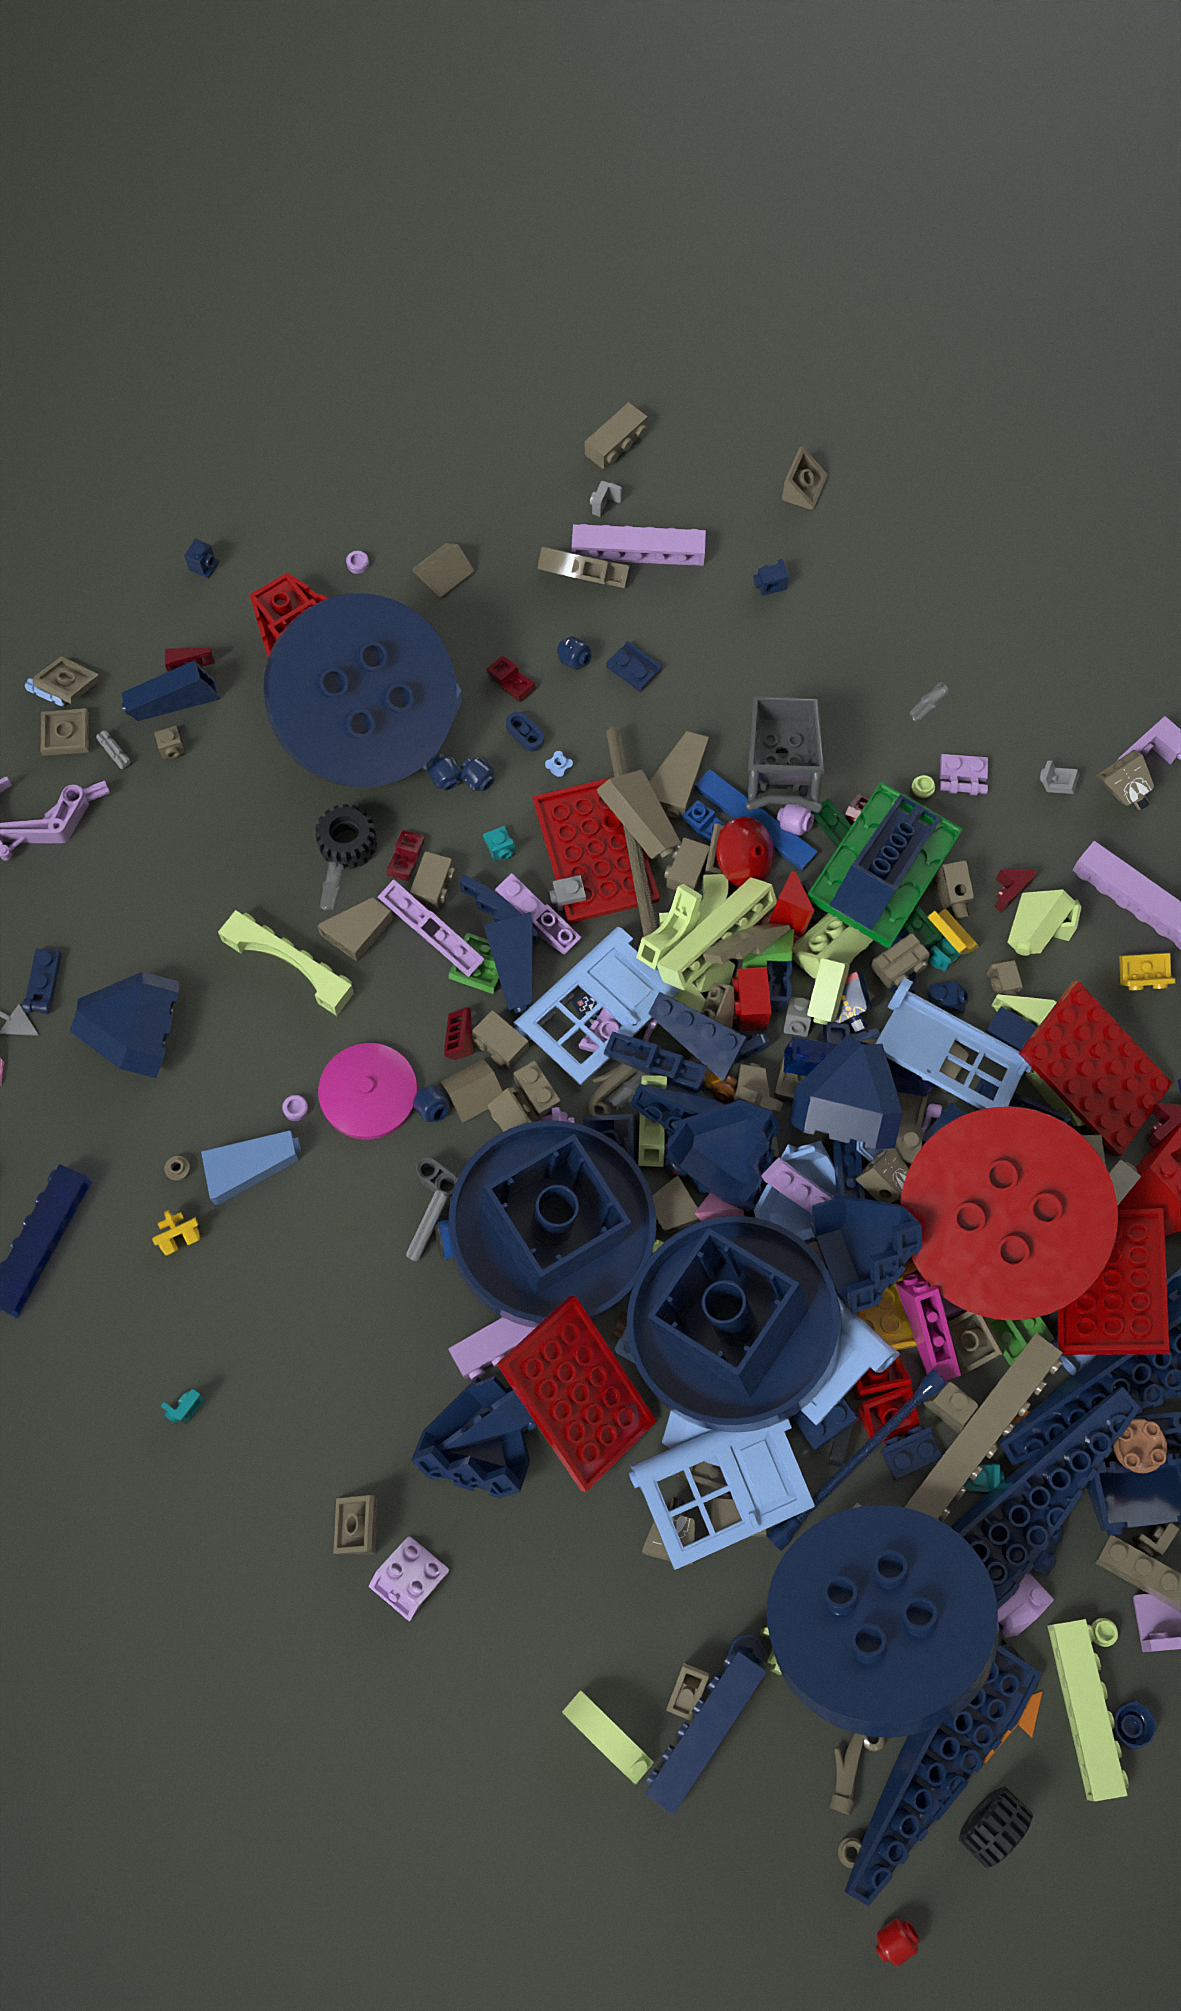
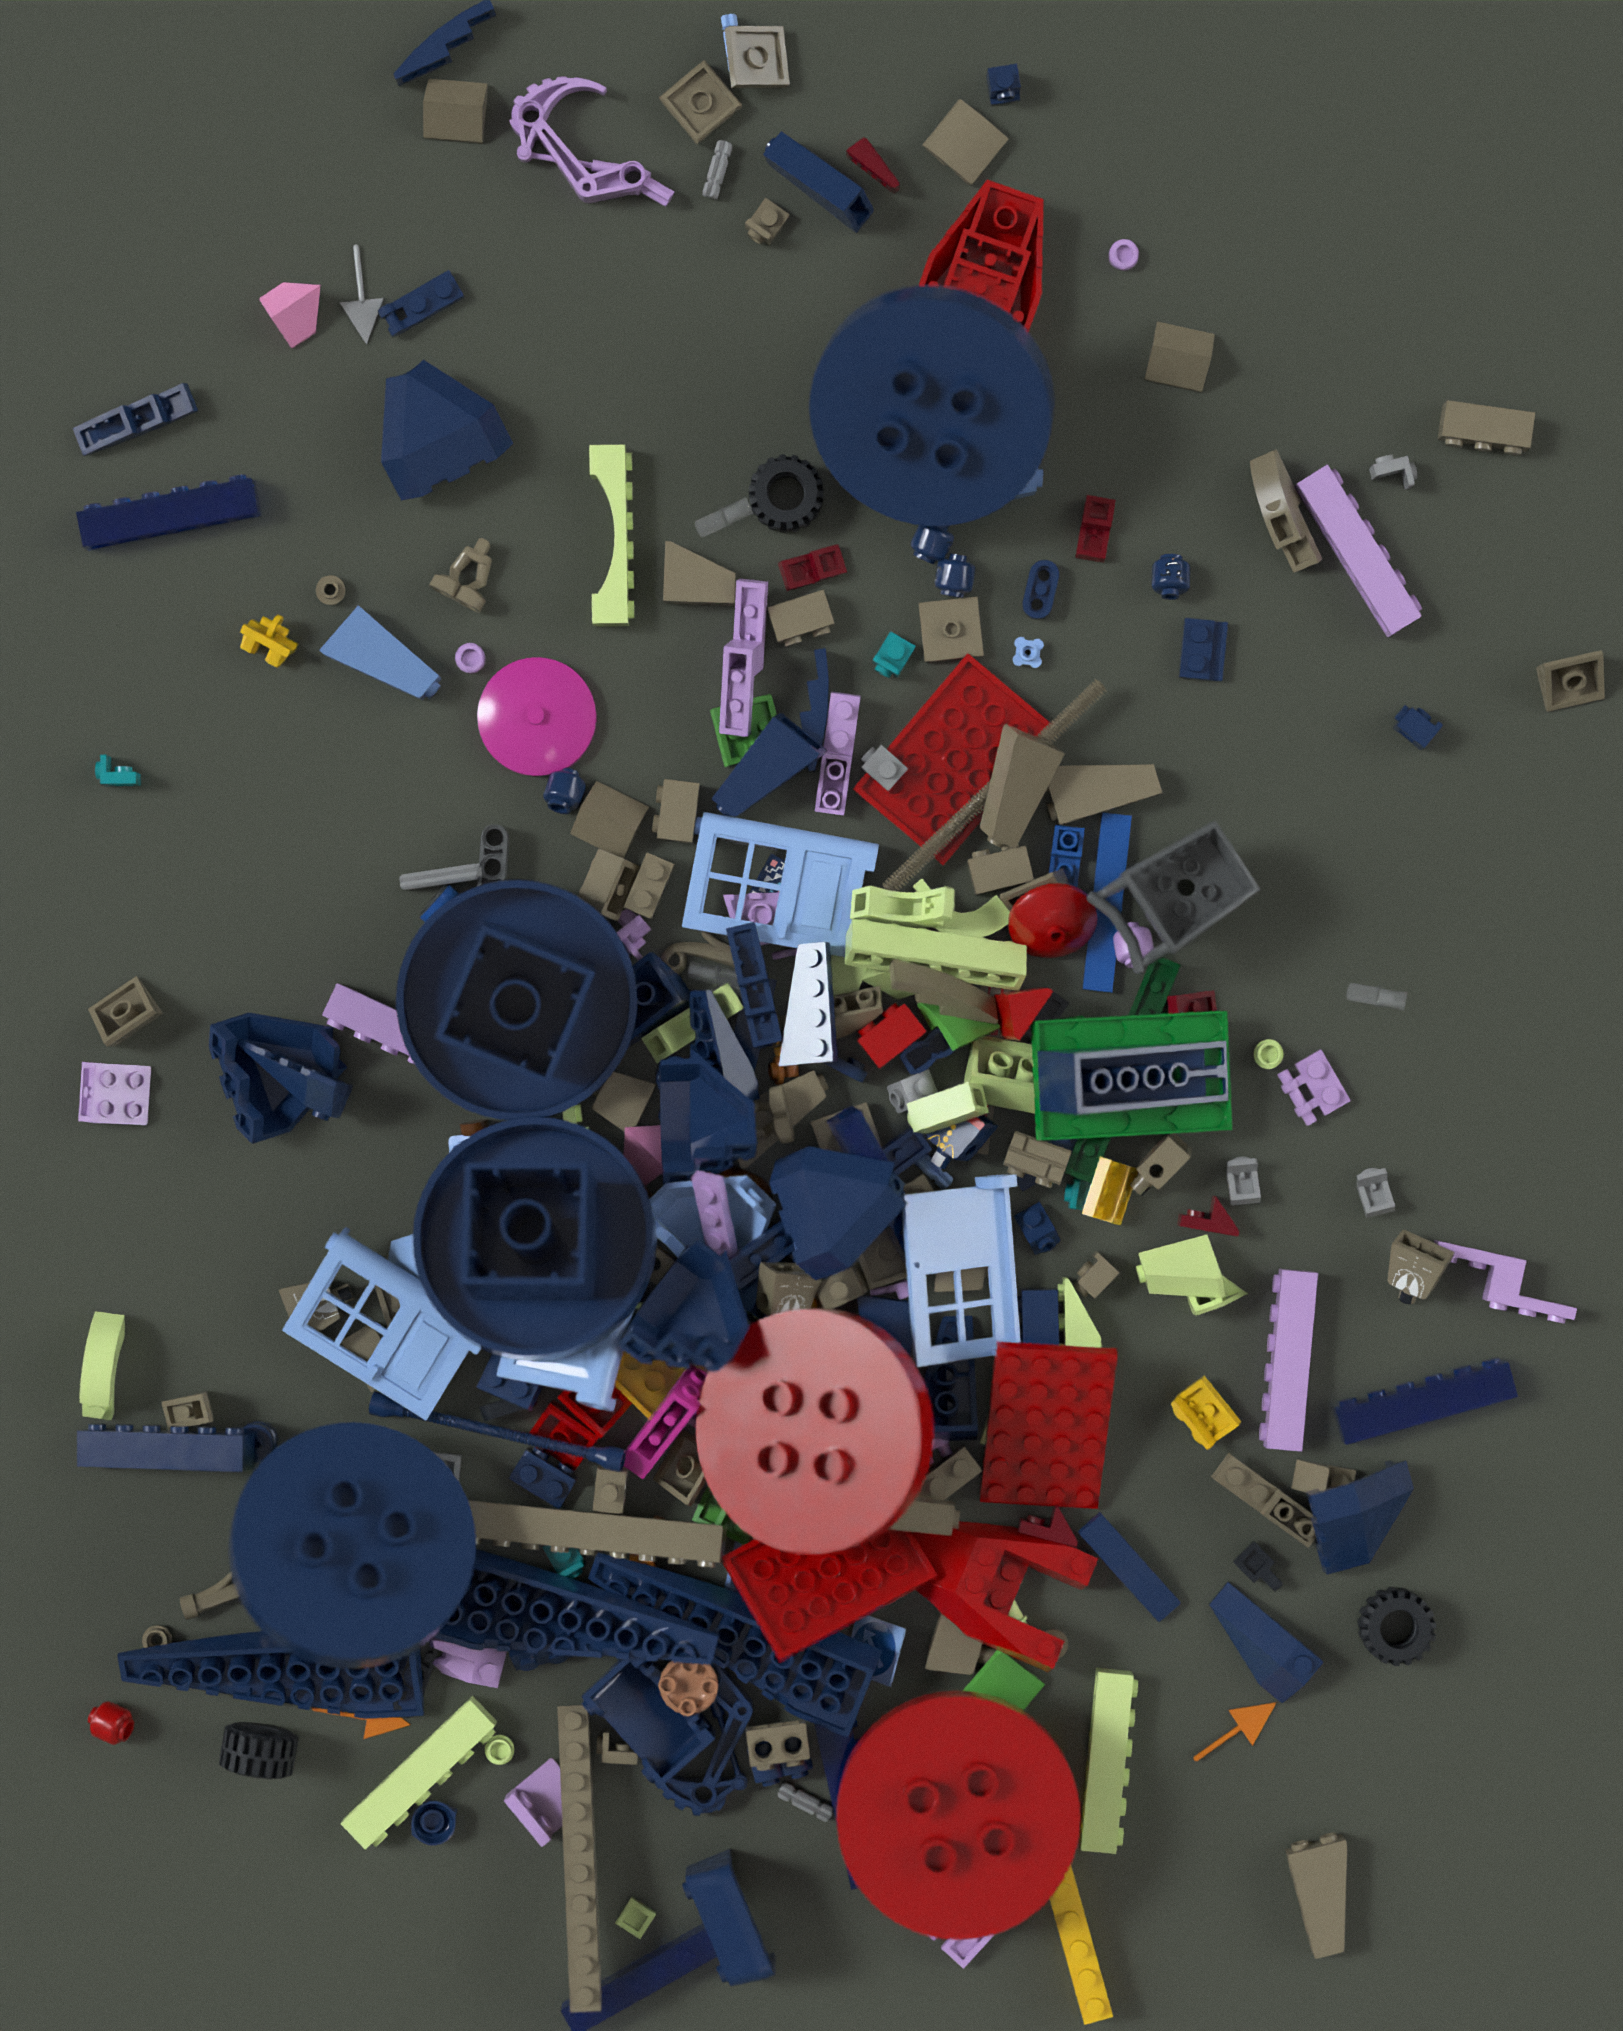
camera: 60 degrees right, 20 degrees up
(217, 602) = (965, 142): none -> dark tan slope
(251, 1080) = (466, 594): none -> dark tan piece
(465, 1047) = (639, 768): dark red slope -> none
(509, 800) = (950, 629): none -> dark tan plate
(577, 1393) = (372, 1136): red plate -> none
(999, 851) = (1243, 1181): none -> light grey bracket

